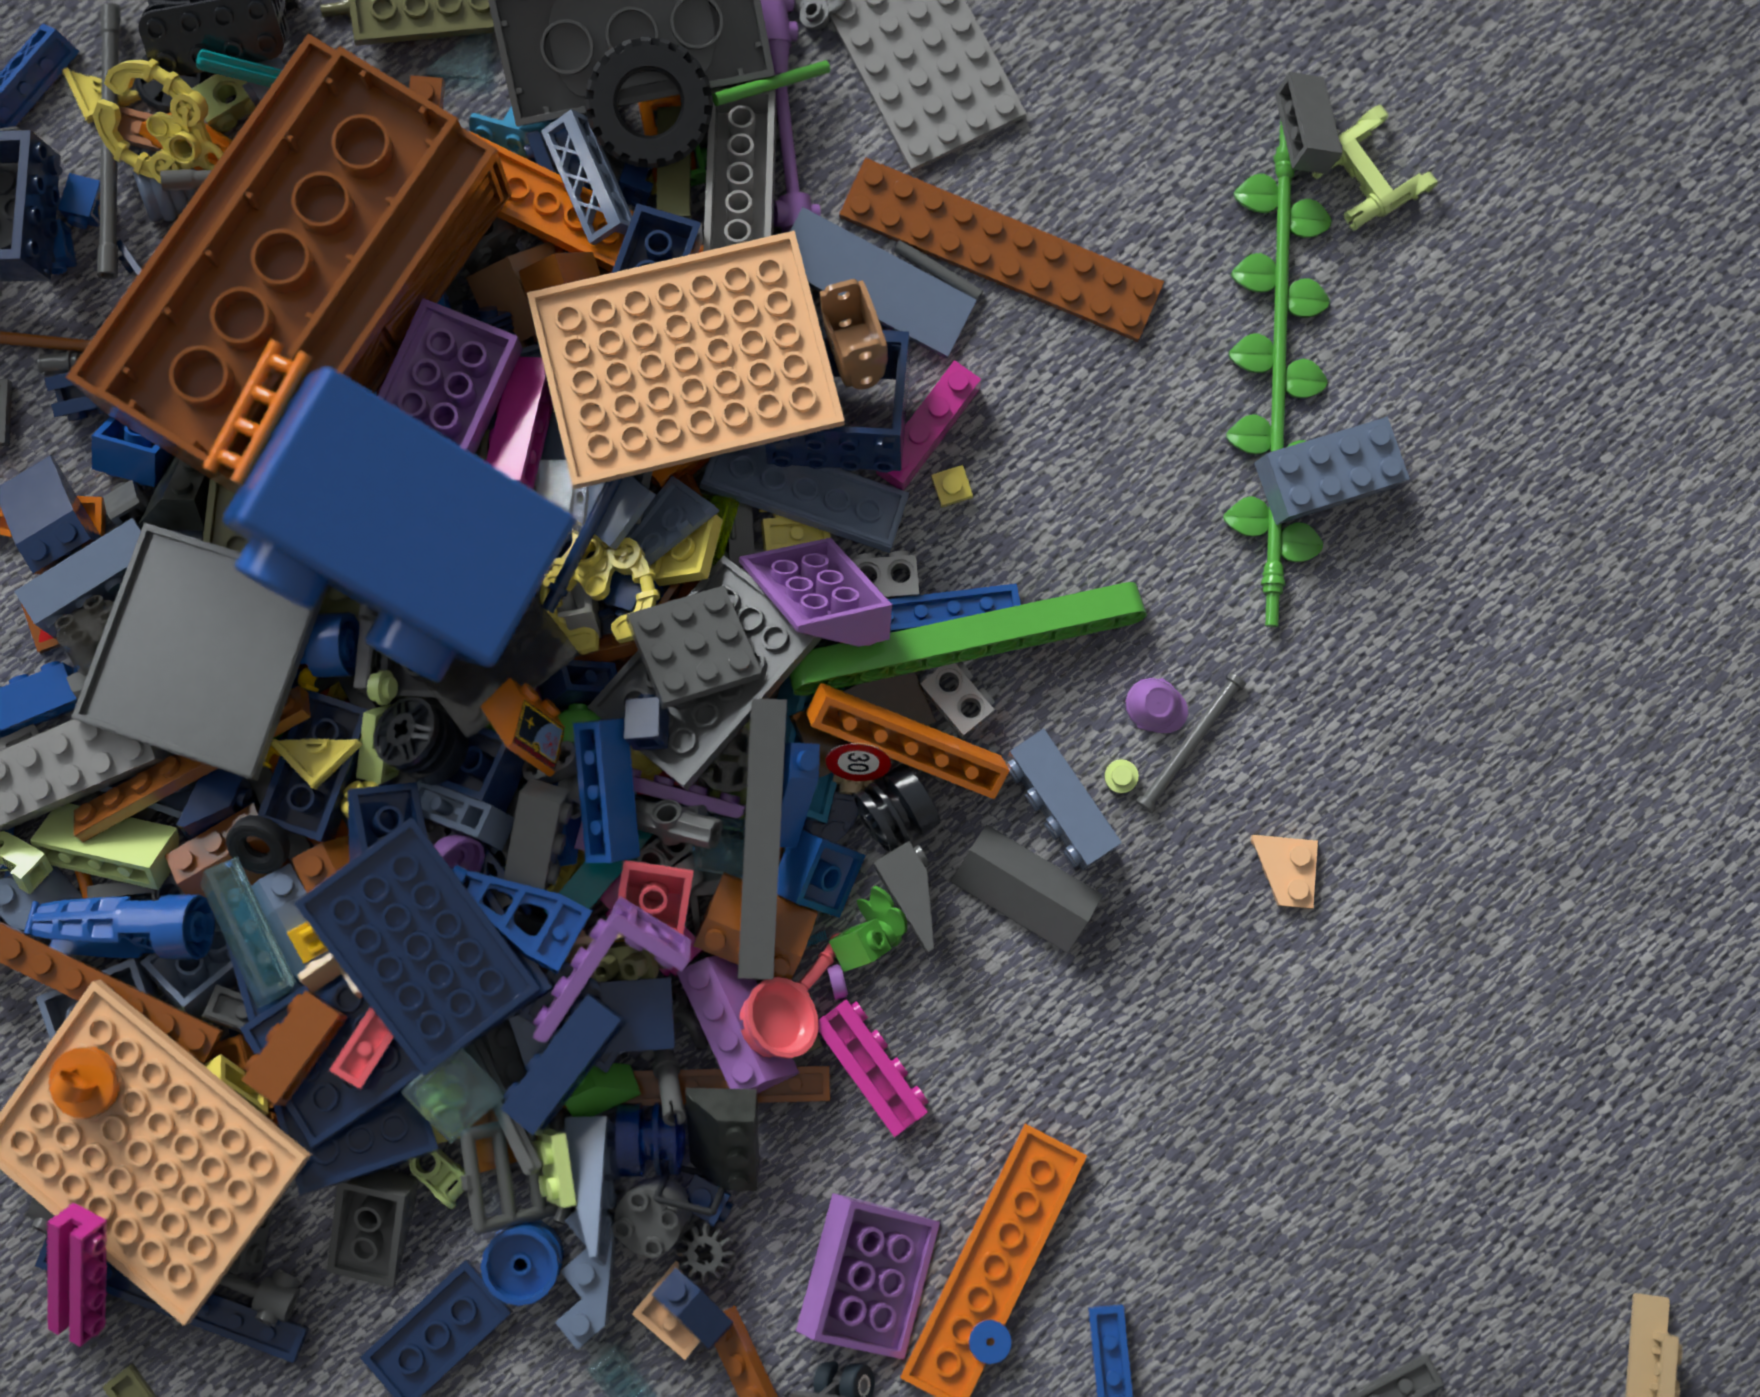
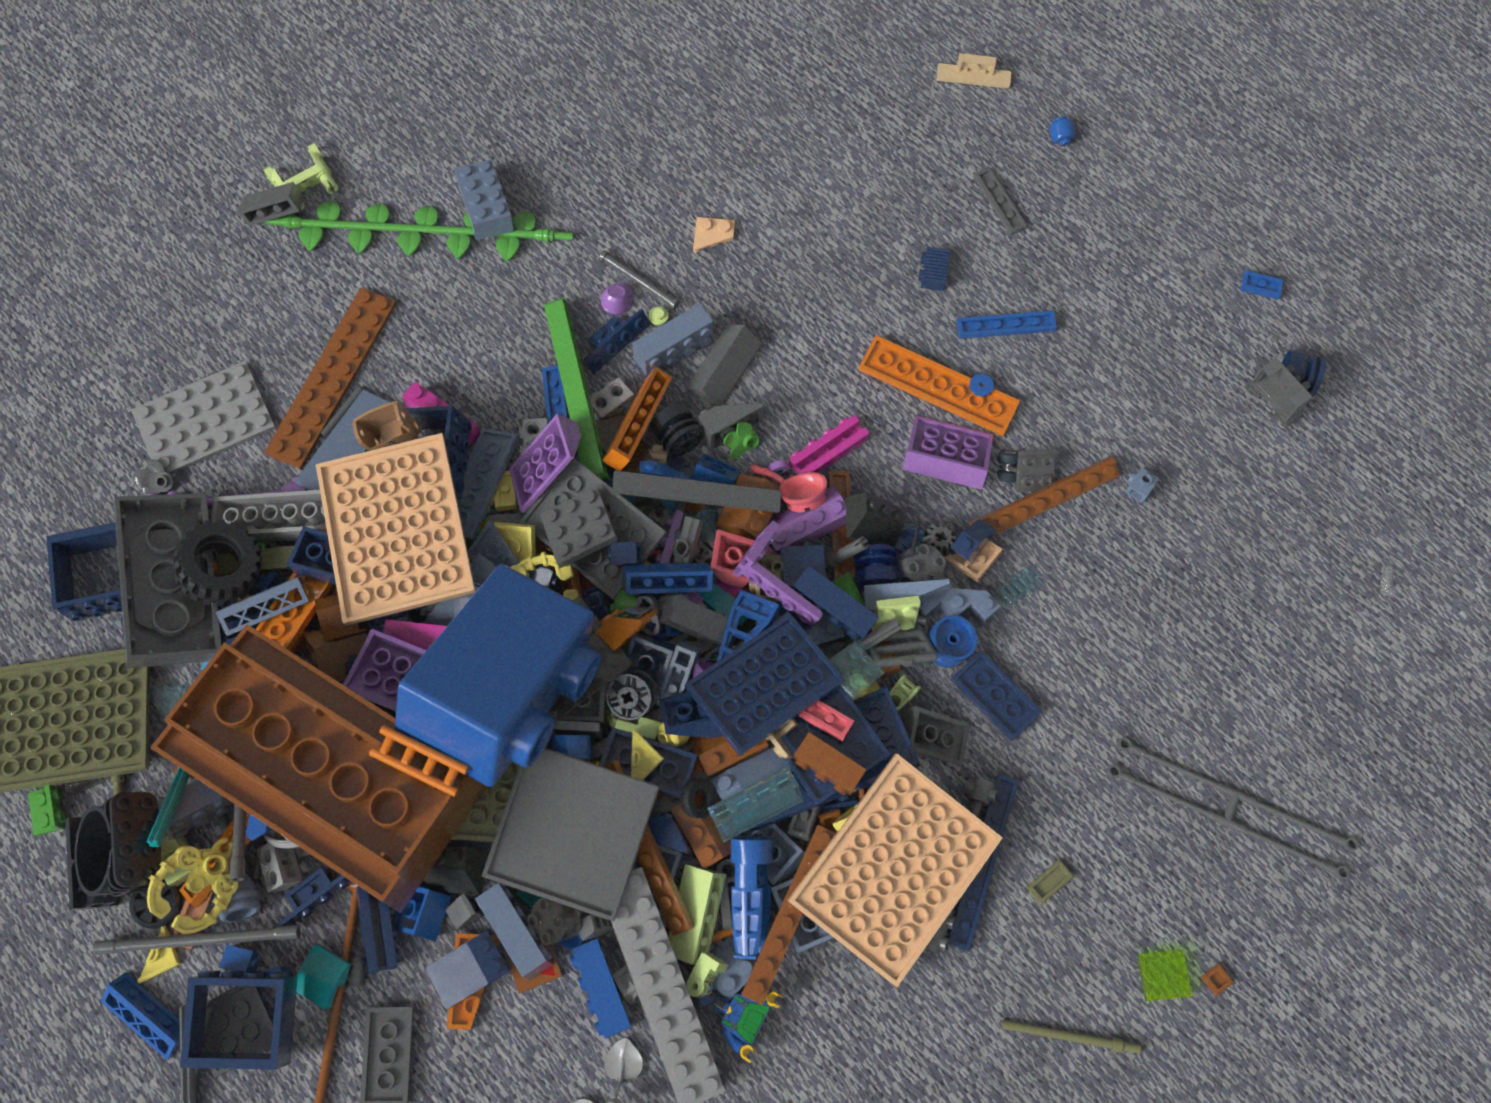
camera: 95 degrees left, 10 degrees down
(53, 314) = (321, 976): none -> teal slope
(76, 1273) = (974, 910): dark pink brick -> none
(84, 1082) = (854, 905): orange tile -> none
(306, 942) = (759, 764): yellow tile -> none
(382, 687) = (599, 714): yellowish green plate -> none
(771, 83) = (209, 495): bright green bar -> none
(858, 762) = (650, 442): sticker -> none
(860, 945) = (757, 451): bright green brick -> none
(952, 486) = (479, 405): light yellow plate -> none
(1076, 699) = (613, 338): none -> dark blue bracket
(1224, 1269) = (935, 268): none -> dark blue brick

